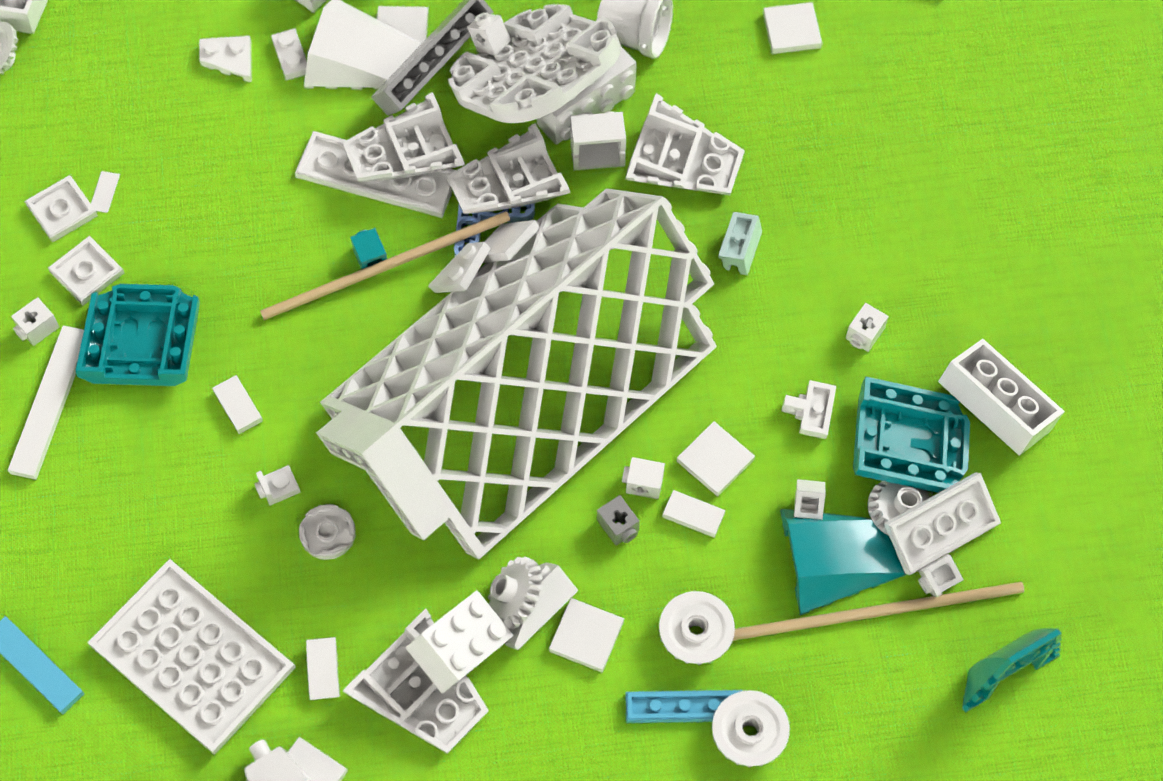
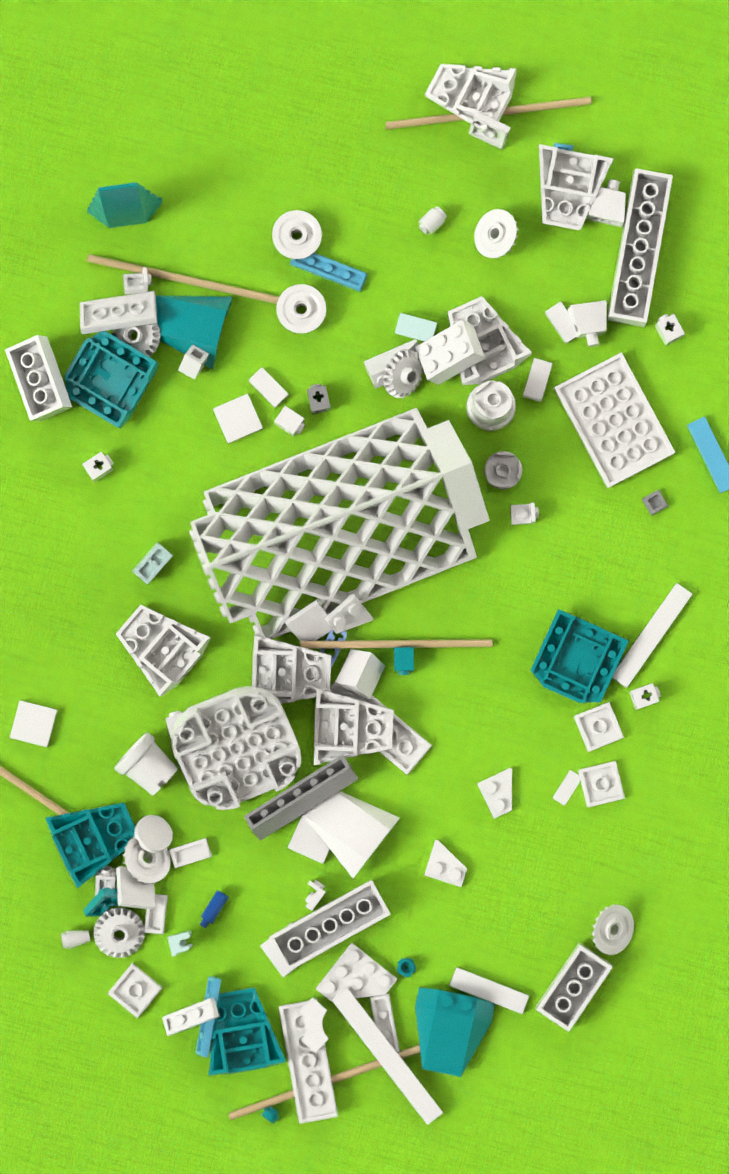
camera: 160 degrees left, 20 degrees up
(98, 570) = (654, 502): none -> light grey tile
(192, 153) = (498, 792): none -> white wing
(237, 404) = (530, 582): white tile -> none
(290, 53) = (400, 849): white plate -> none
(374, 604) = (491, 406): none -> white piece
(418, 214) = (360, 673): none -> white slope
(488, 33) = (255, 796): white brick -> none
(525, 670) = (415, 327): none -> light aqua hinge
(586, 635) = (368, 336): white tile -> none
(598, 140) = (215, 677): white piece -> none
(812, 409) = (160, 425): white hinge -> none

